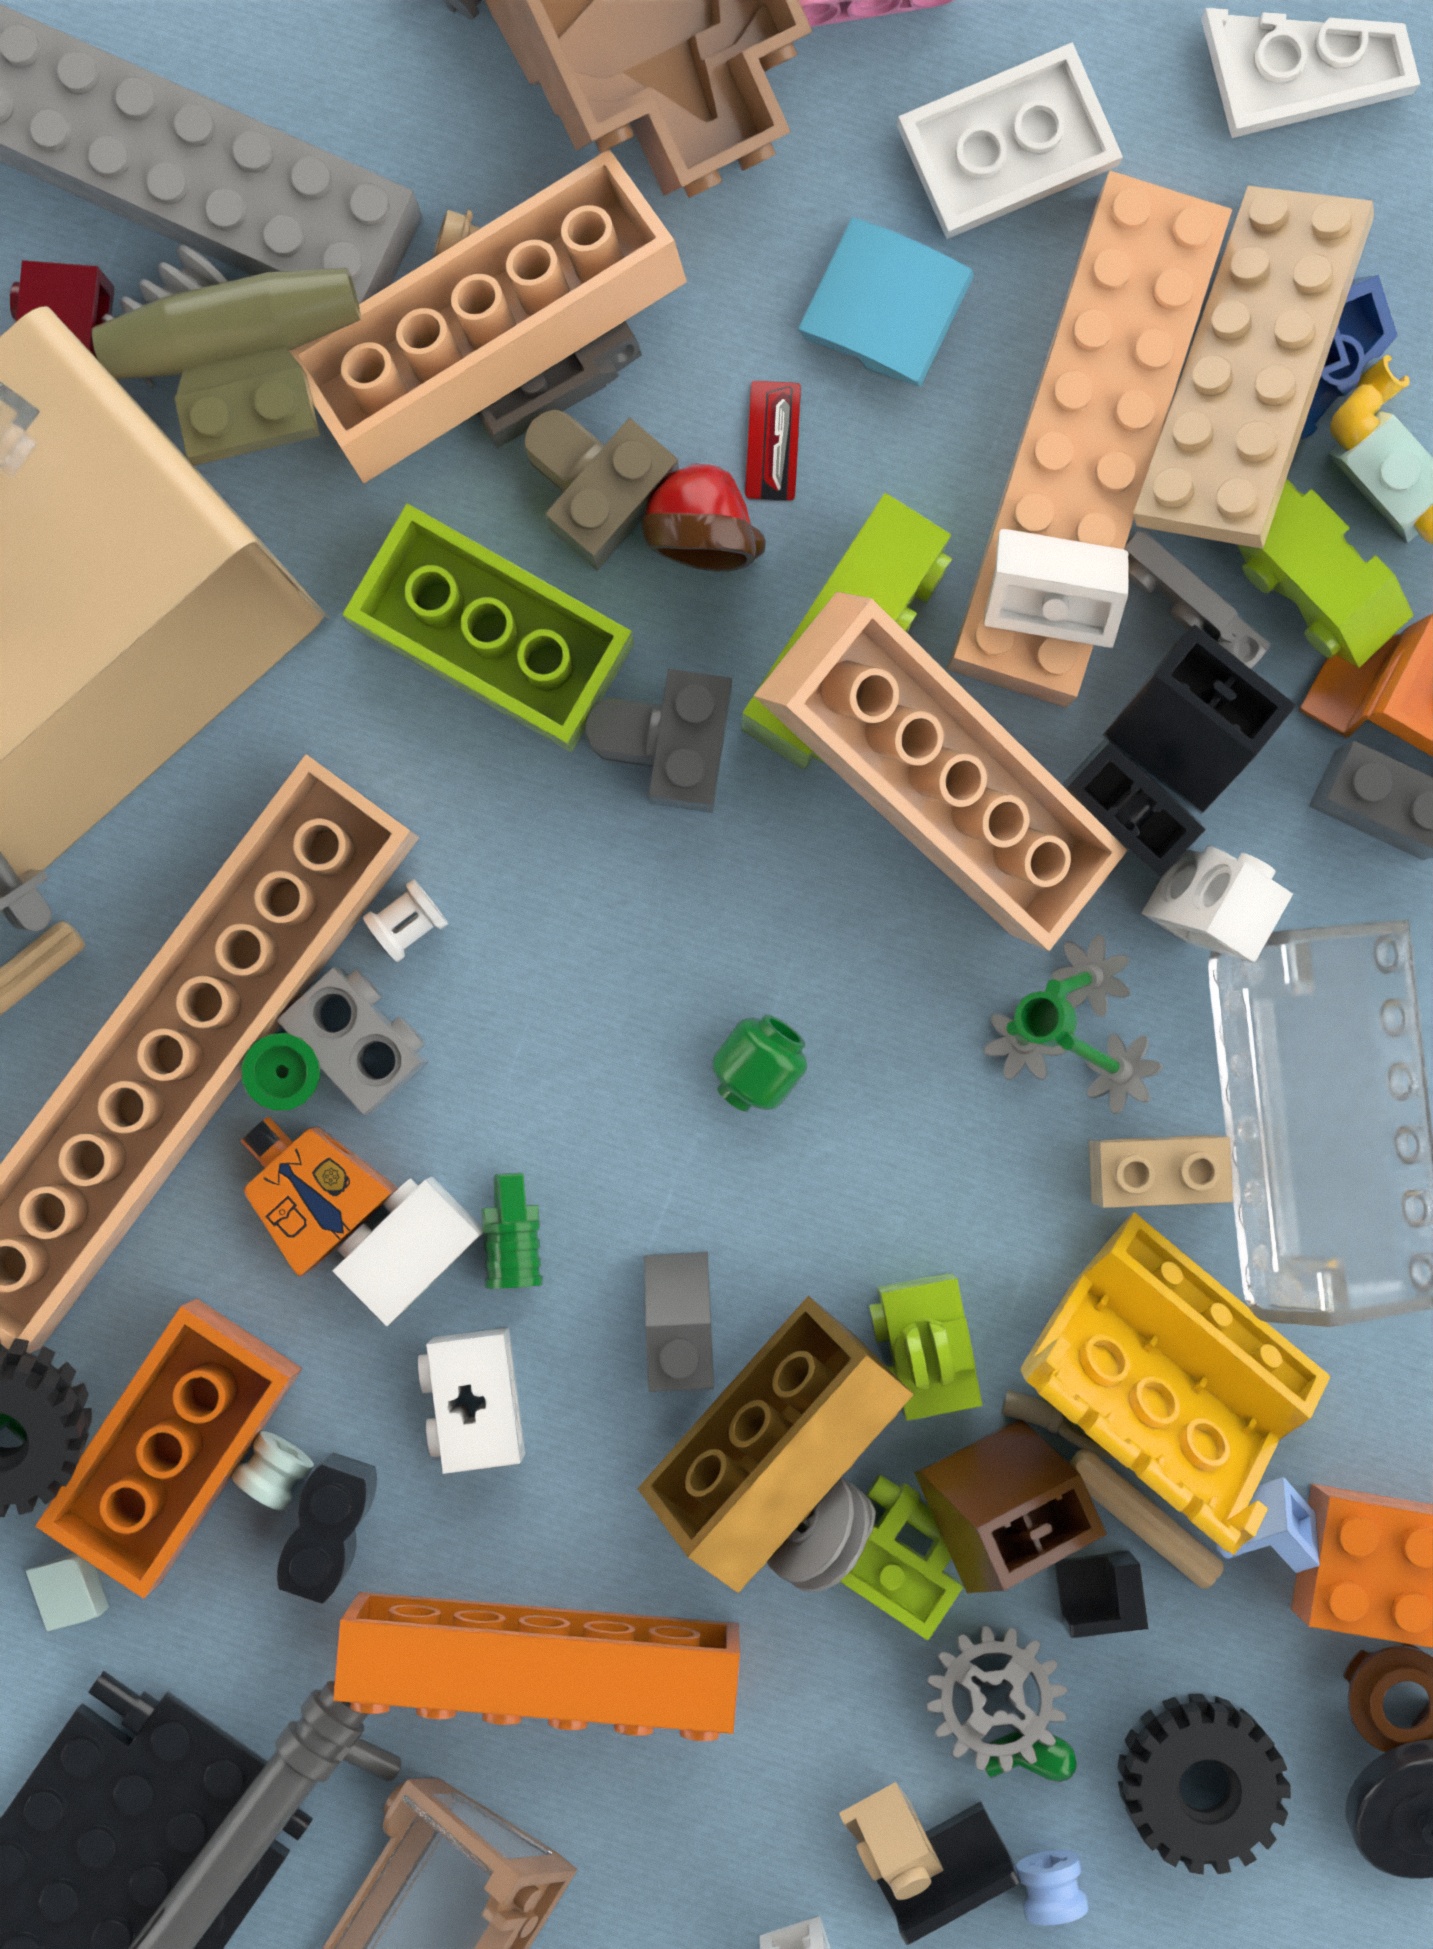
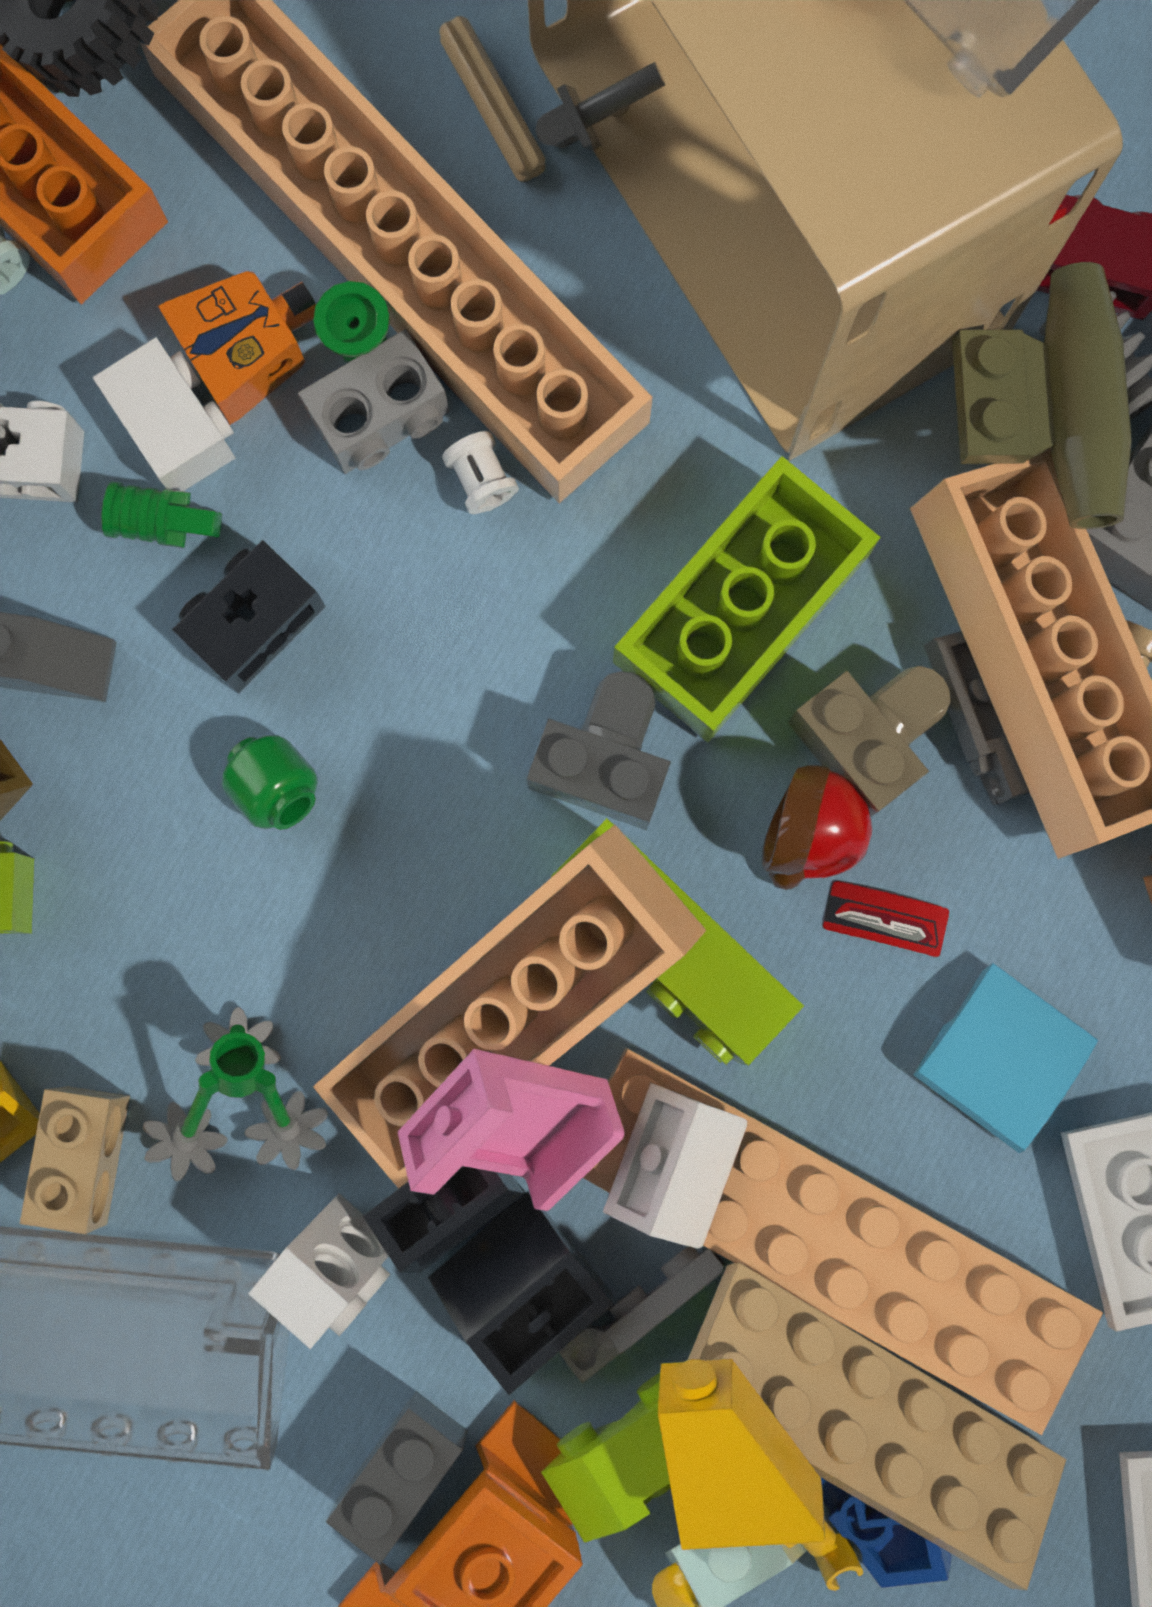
camera: 100 degrees right, 5 degrees down
(579, 1088) = (230, 643): none -> black brick
(1045, 741) = (513, 1122): none -> bright pink panel
(1315, 479) = (732, 1462): none -> yellow slope

